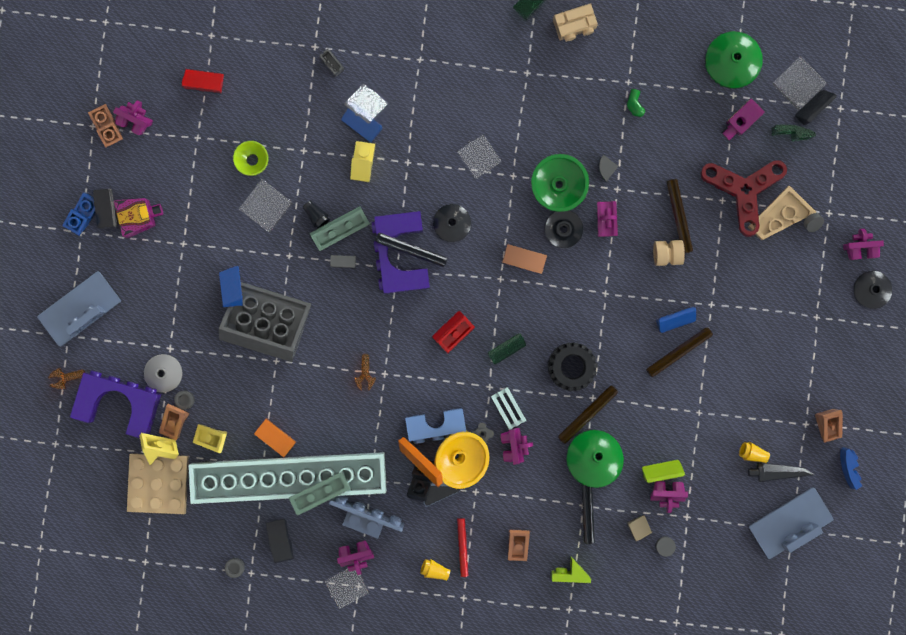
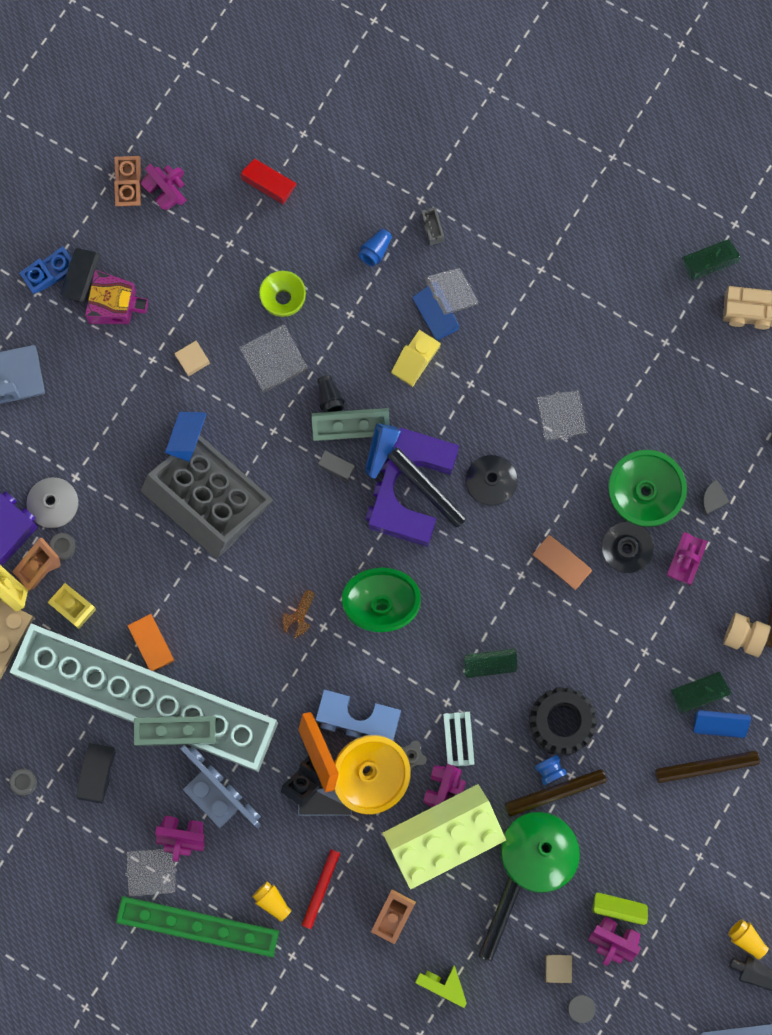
camera: 30 degrees right, 10 degrees down
(210, 231) = (192, 358): none -> tan tile
(299, 96) = (374, 249): none -> blue cone
(367, 232) = (381, 445): none -> blue slope
(393, 608) = (197, 926): none -> green tile
(411, 332) = (381, 590): none -> green dish
(453, 331) = (436, 613): red slope -> none
(528, 479) = (444, 836): none -> yellowish green brick
(578, 402) = (550, 770): none -> blue wheel
(654, 304) = (700, 692): none -> clear green slope

